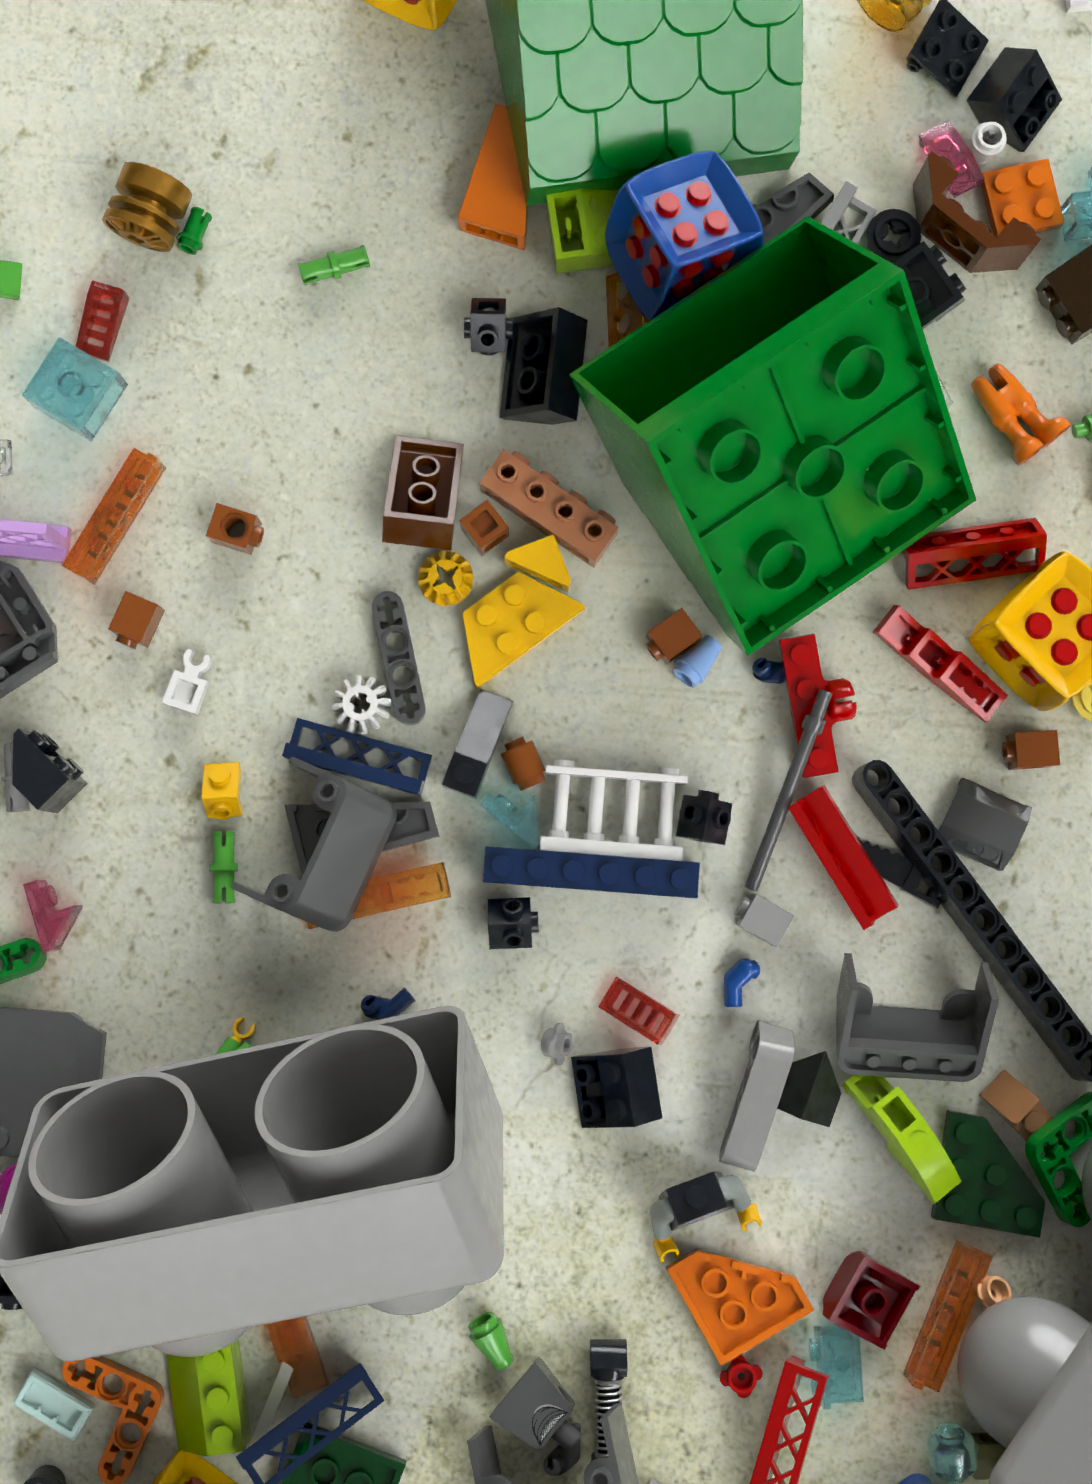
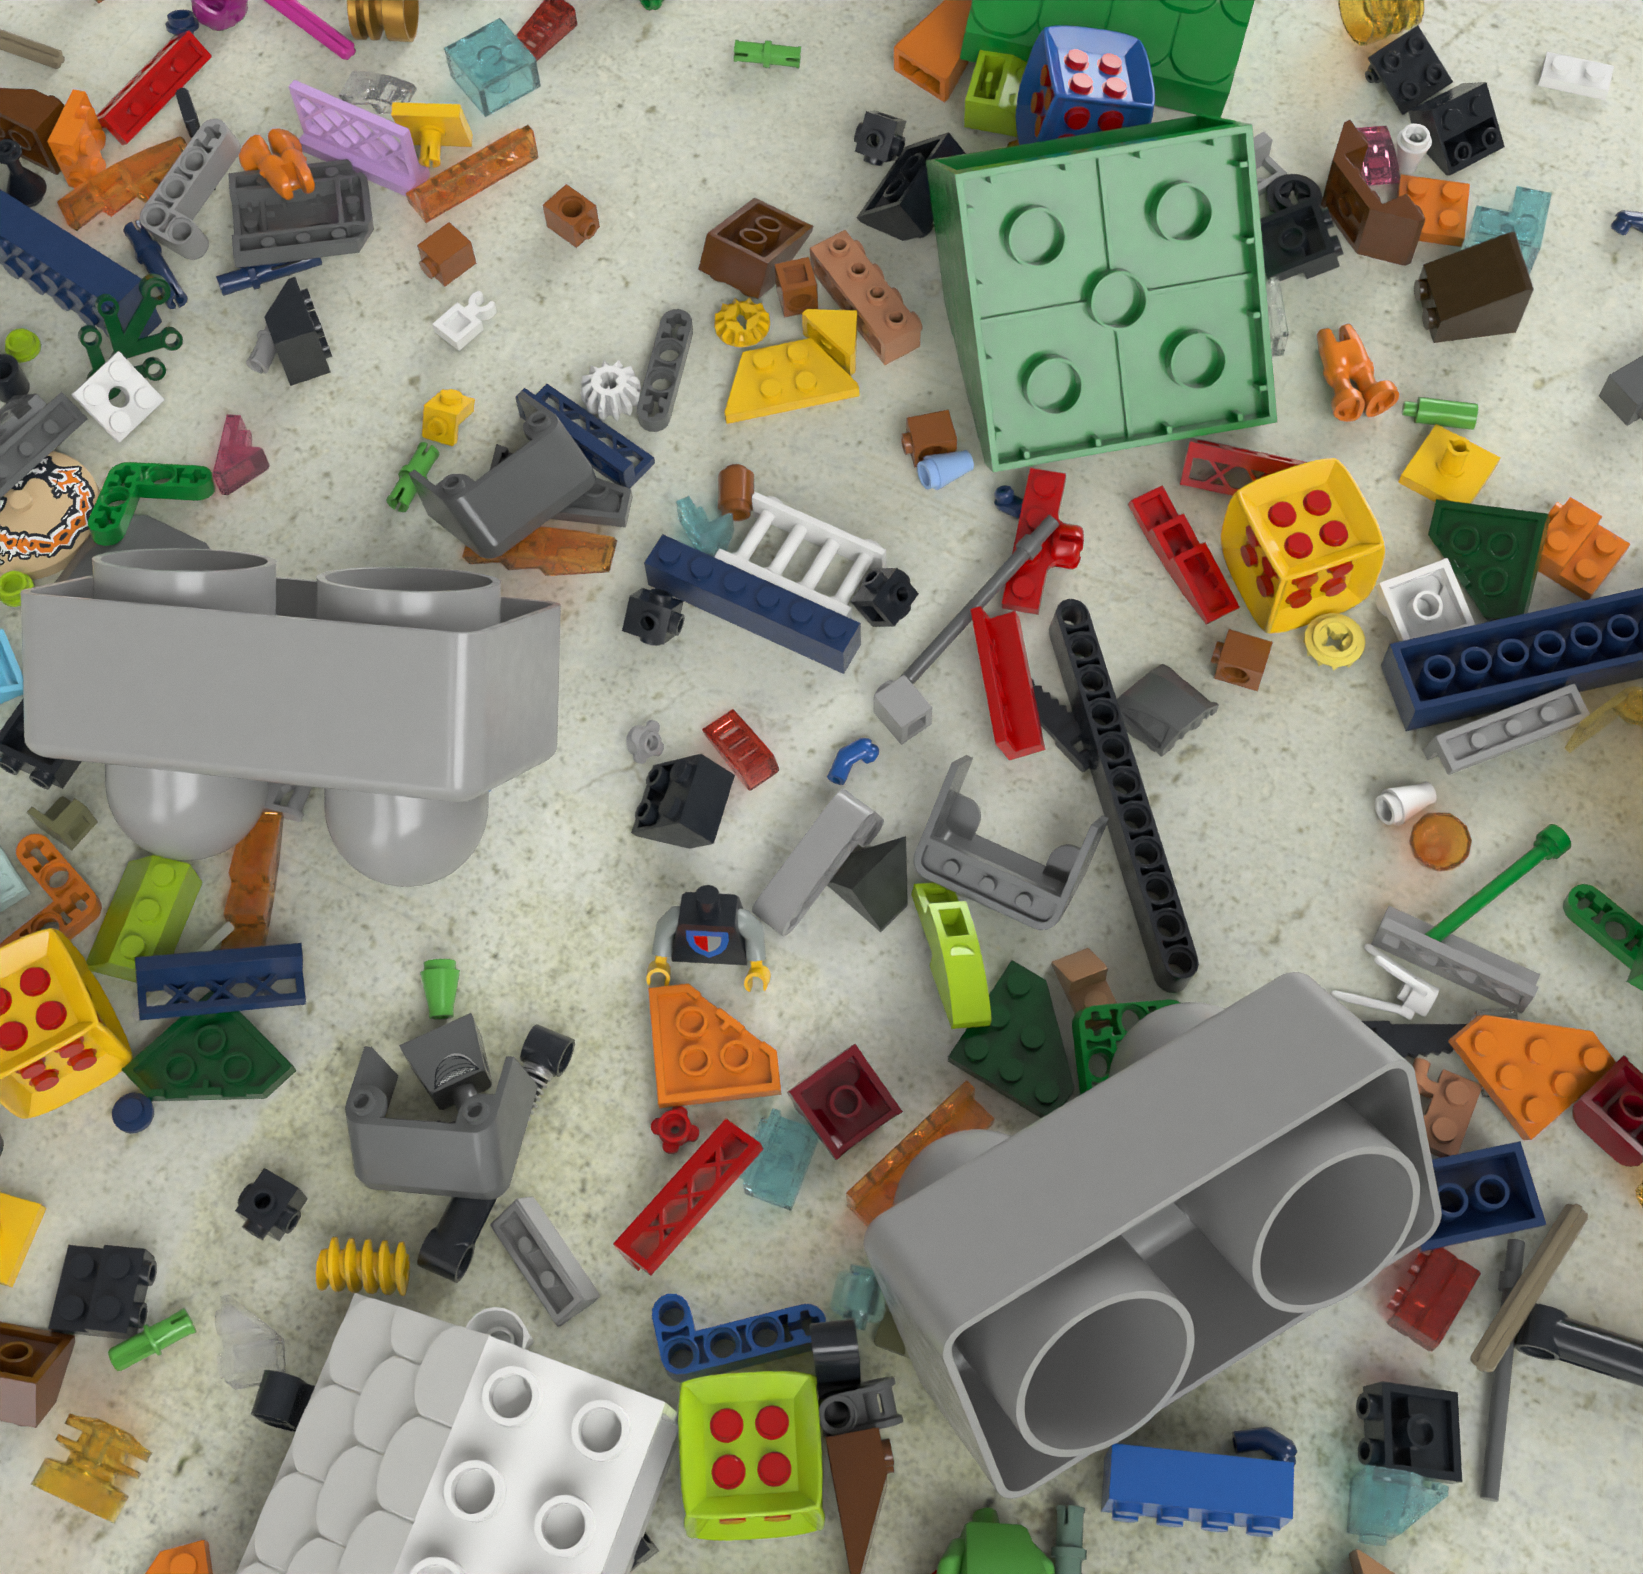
camera: 30 degrees right, 20 degrees down
(57, 493) = (433, 127): none -> yellow tile
(477, 744) = (696, 463): slope -> none

